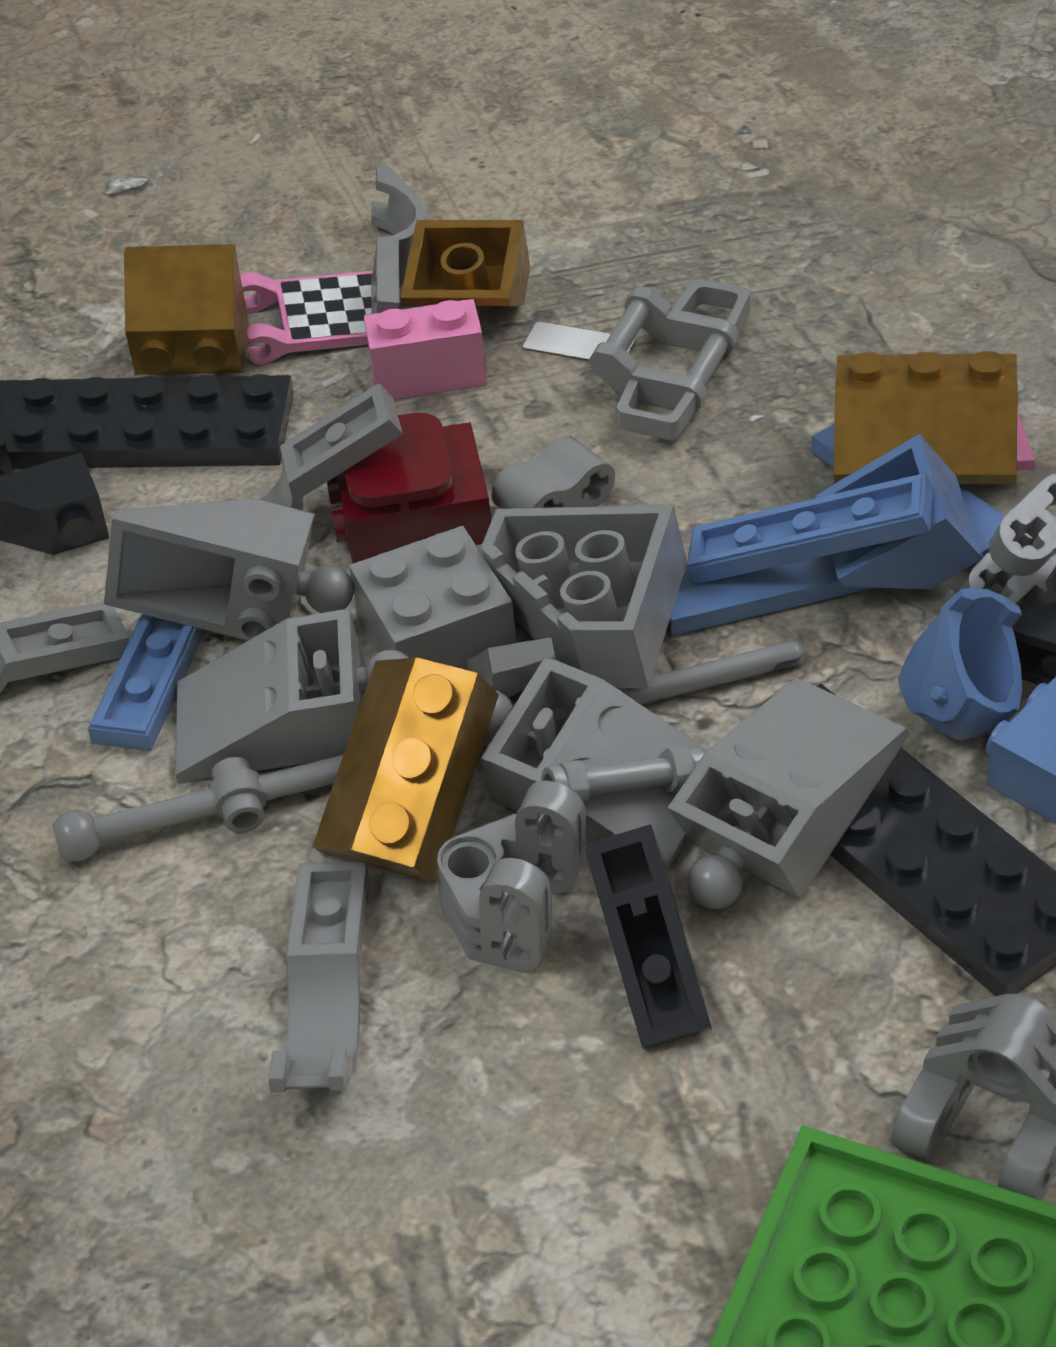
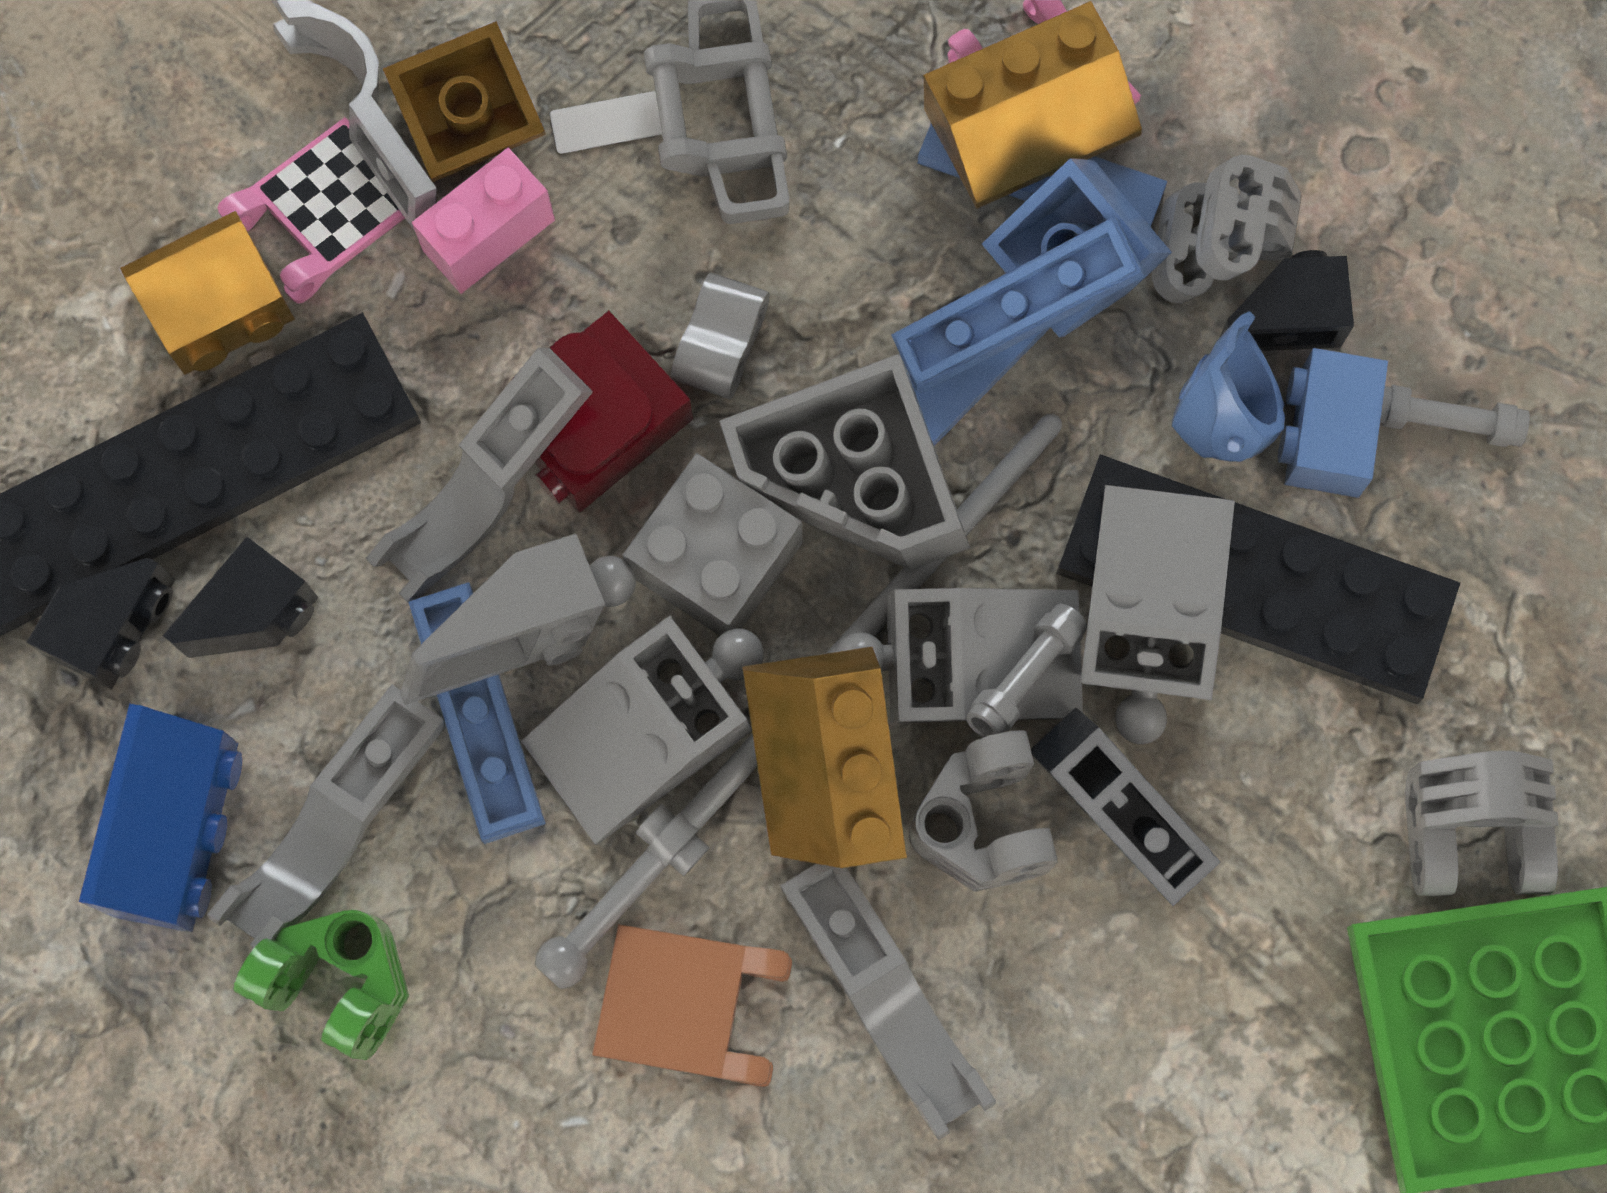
camera: 35 degrees left, 30 degrees up
(147, 913) = (676, 1003): none -> nougat flag
(512, 665) = (836, 585): light grey slope -> none

